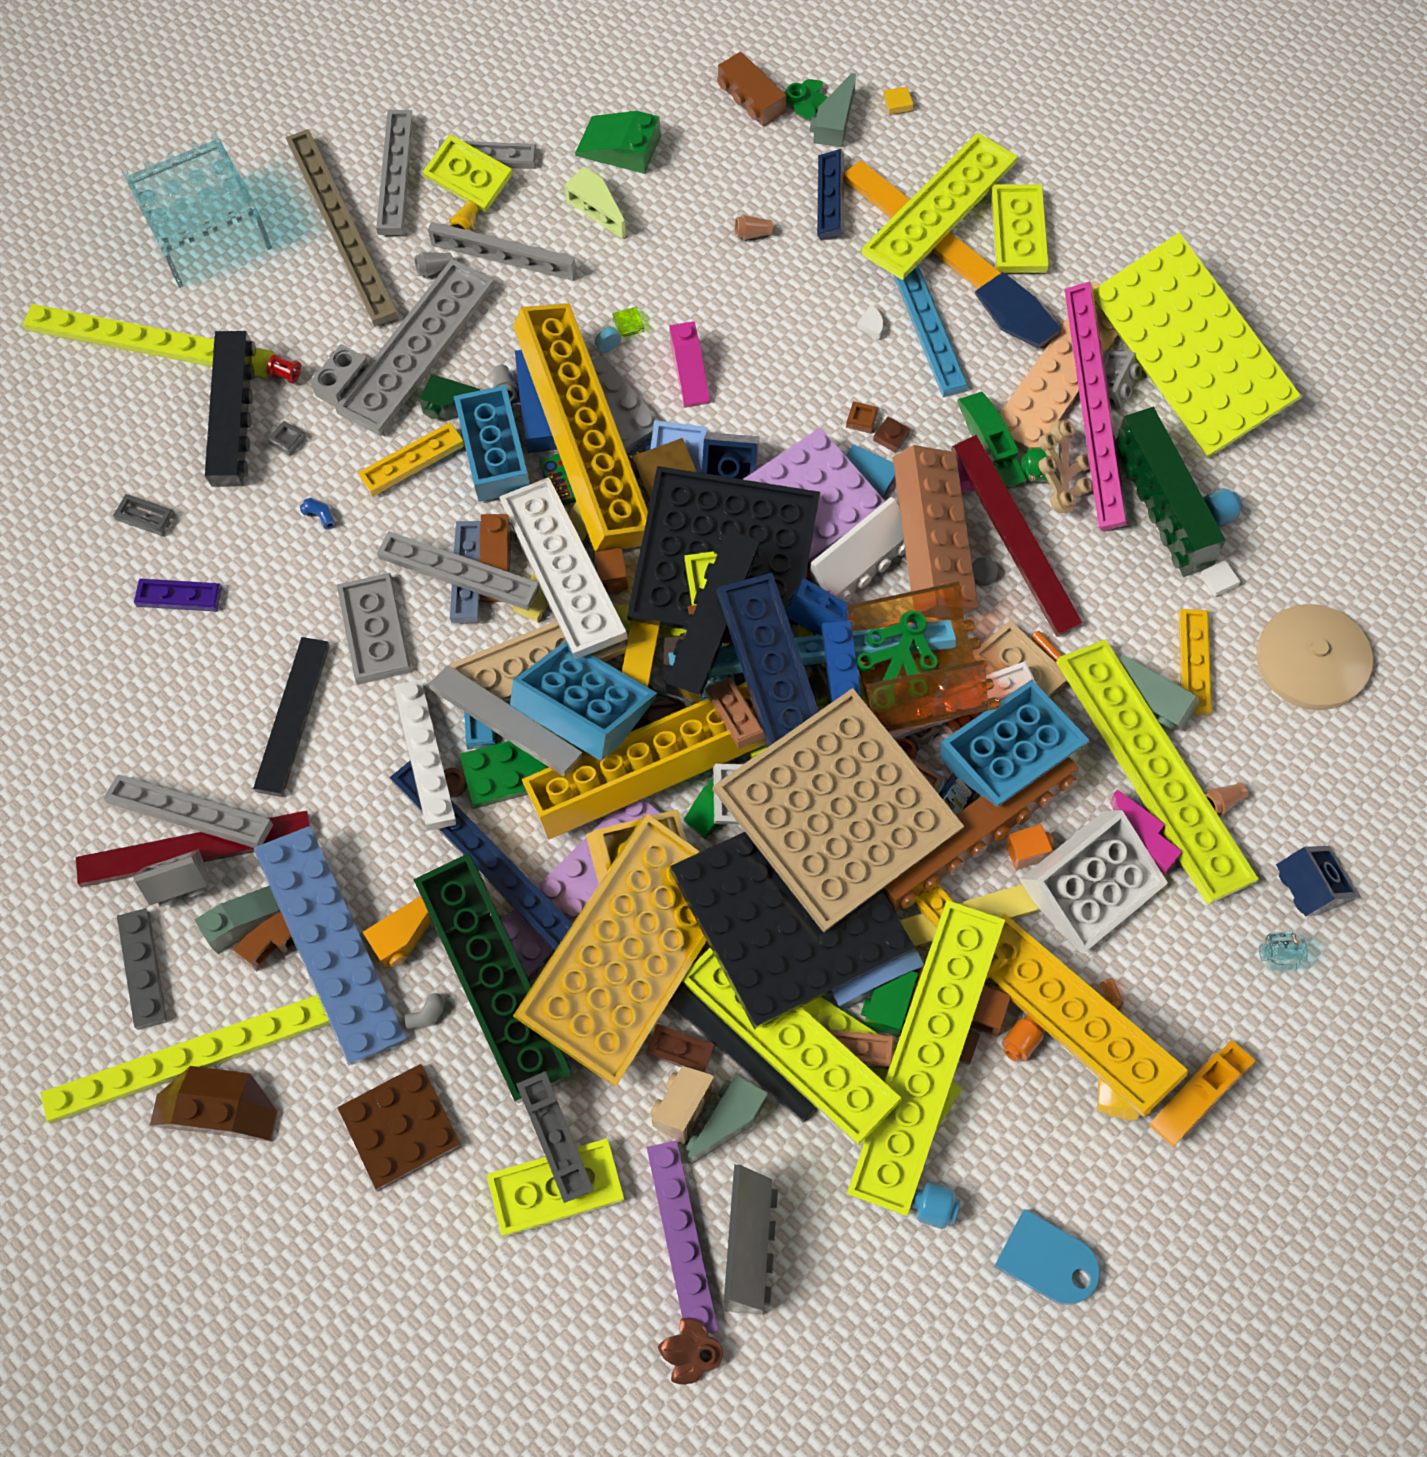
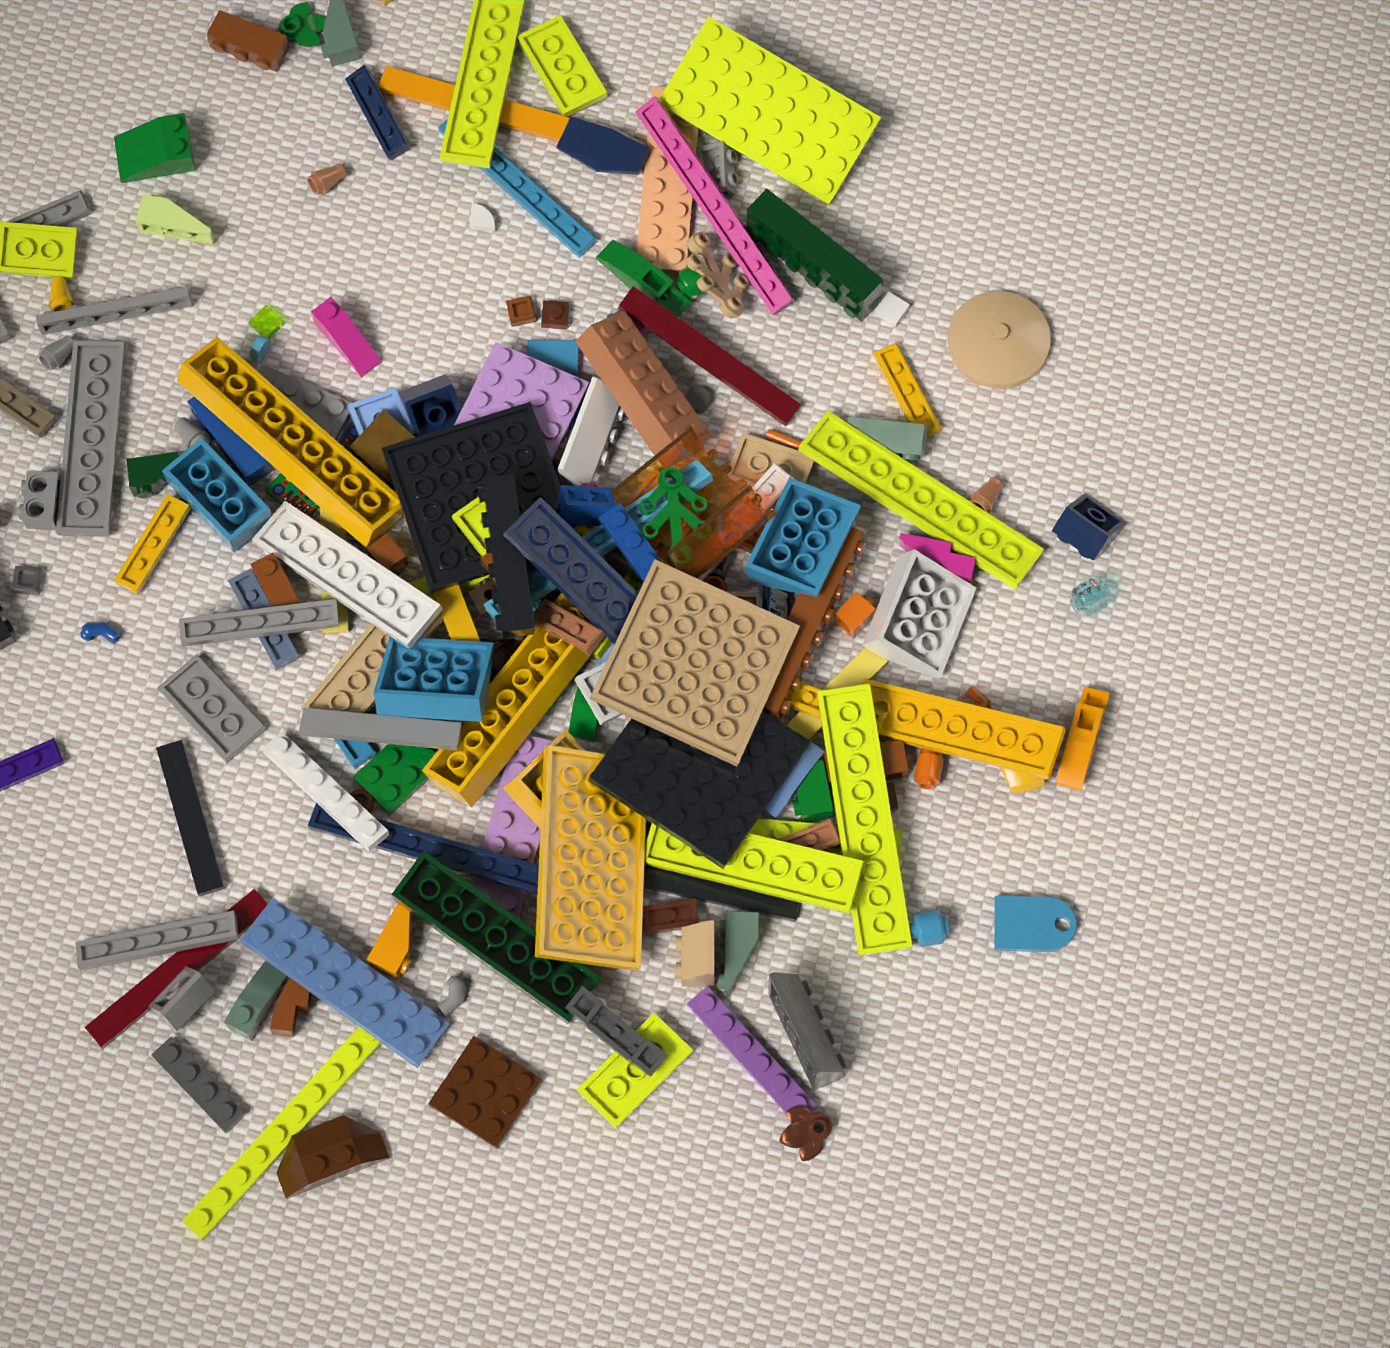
camera: 30 degrees left, 5 degrees up
(1224, 506) = (864, 245): dark azure head -> none

